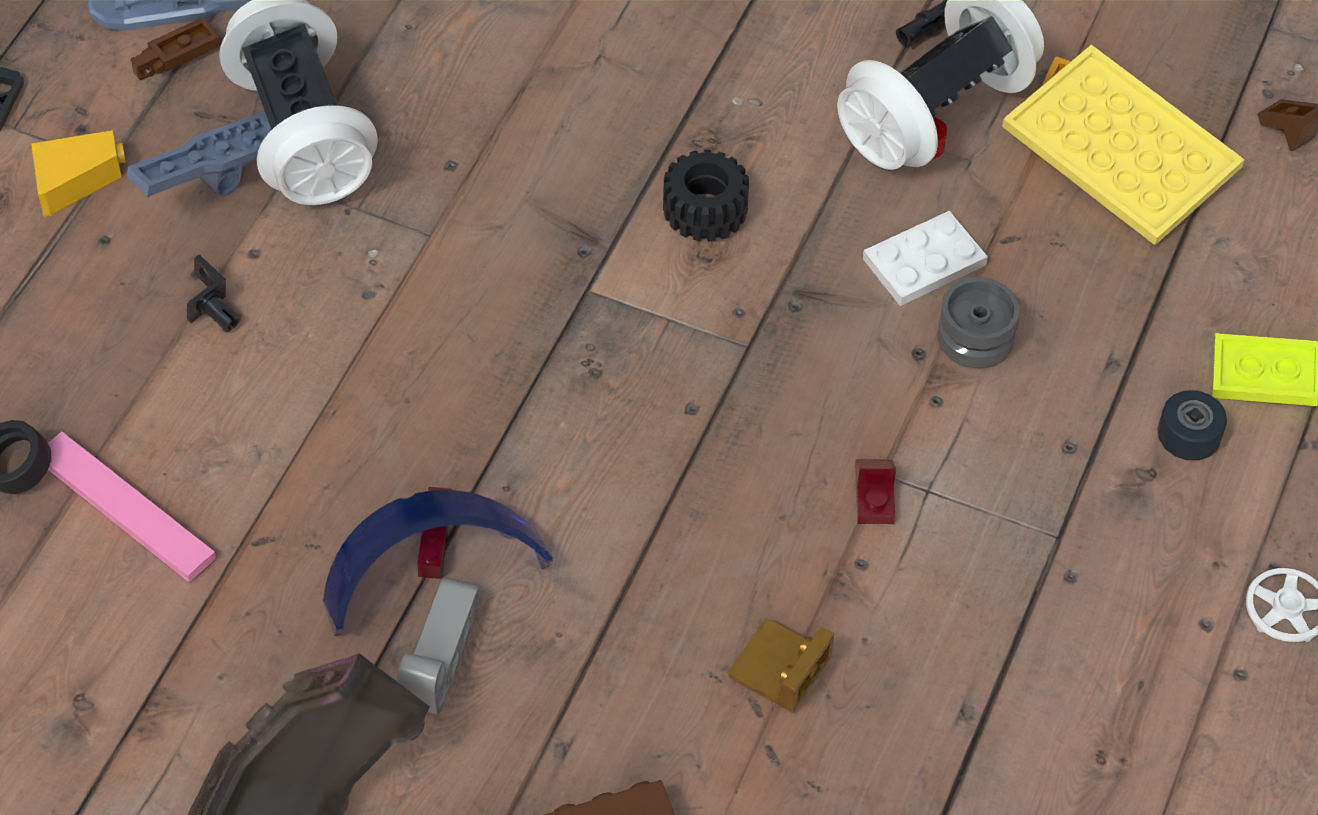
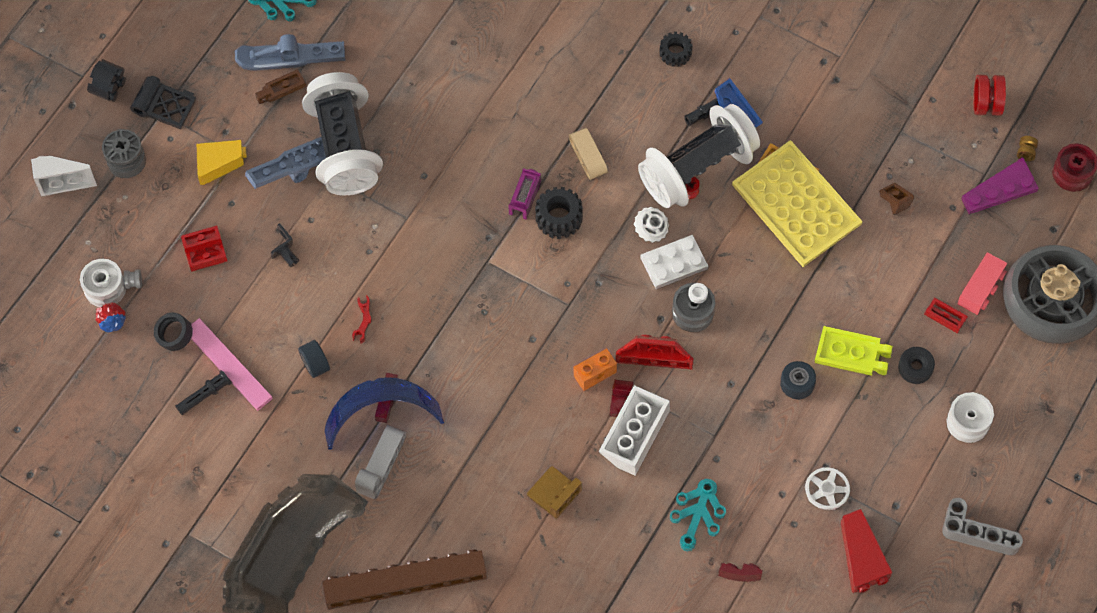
camera: 10 degrees right, 10 degrees up
(60, 316) = (204, 248): none -> red slope
(94, 549) = (211, 387): none -> black pin
(289, 475) = (314, 358): none -> black wheel
(373, 388) = (366, 319): none -> red piece
(639, 169) = (525, 192): none -> magenta window
(739, 102) = (588, 153): none -> tan beam
(818, 443) = (595, 369): none -> orange brick
(873, 200) = (651, 224): none -> white piece
(914, 536) = (635, 430): none -> white slope
(924, 405) = (655, 352): none -> red wedge
(985, 291) = (698, 293): none -> white tile
(1060, 668) = (699, 510): none -> teal plant
(1178, 769) = (748, 573): none -> dark red slope

